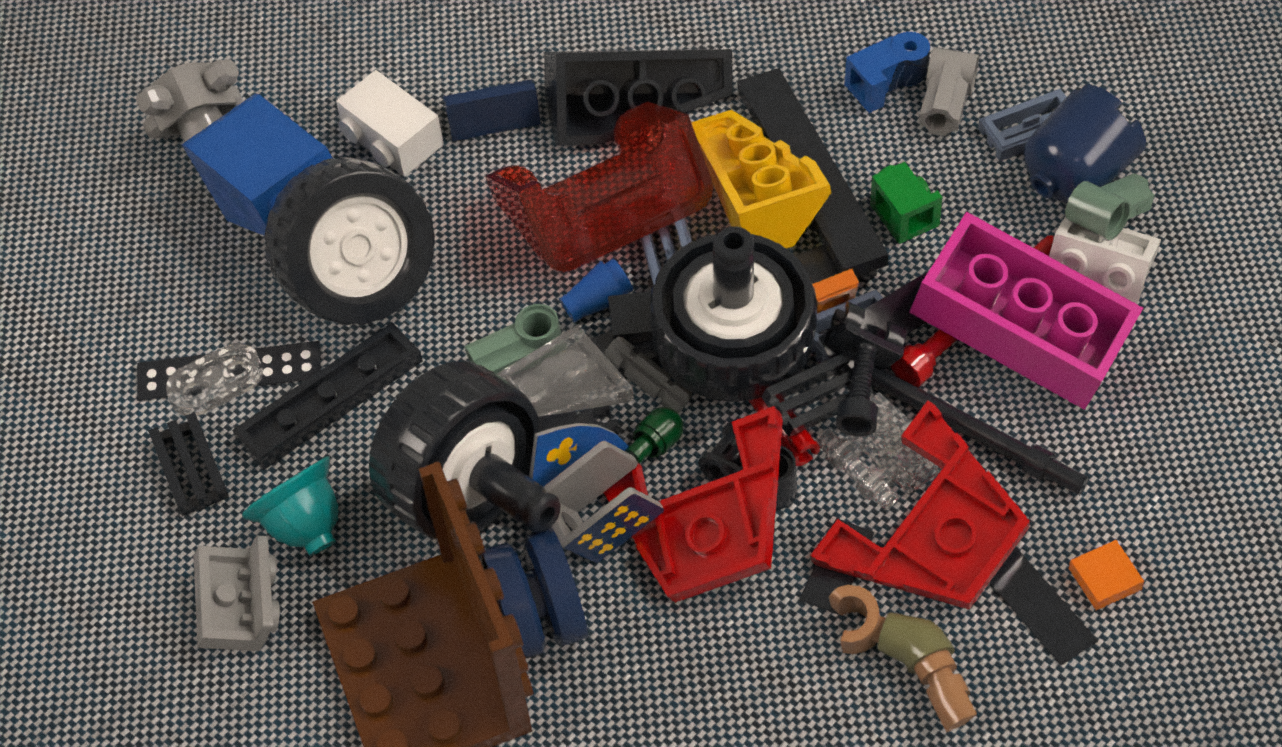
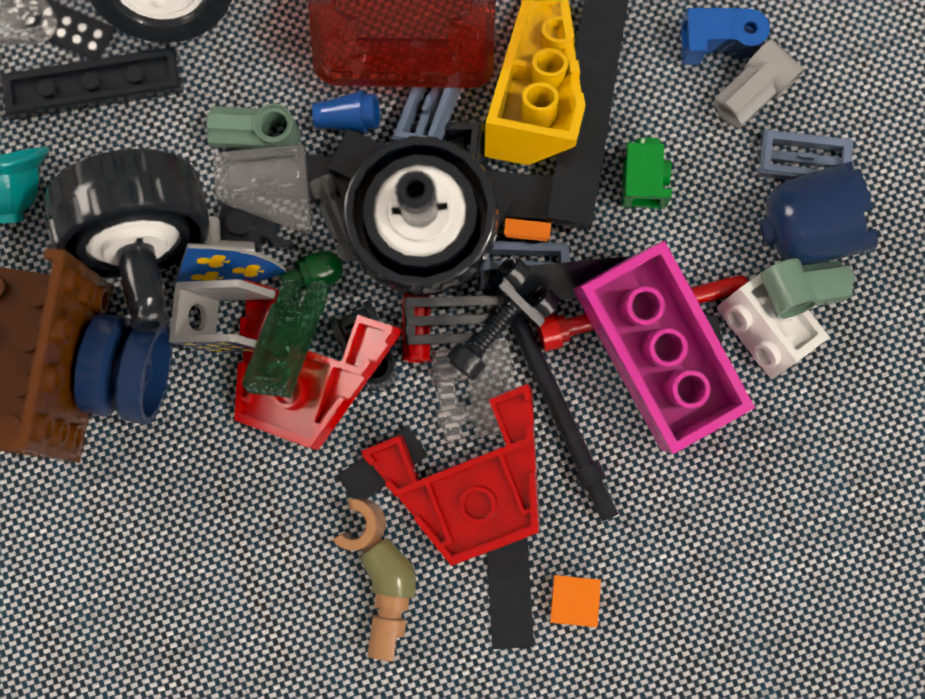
camera: 30 degrees right, 25 degrees up
(677, 485) = (285, 339): none -> clear green hinge

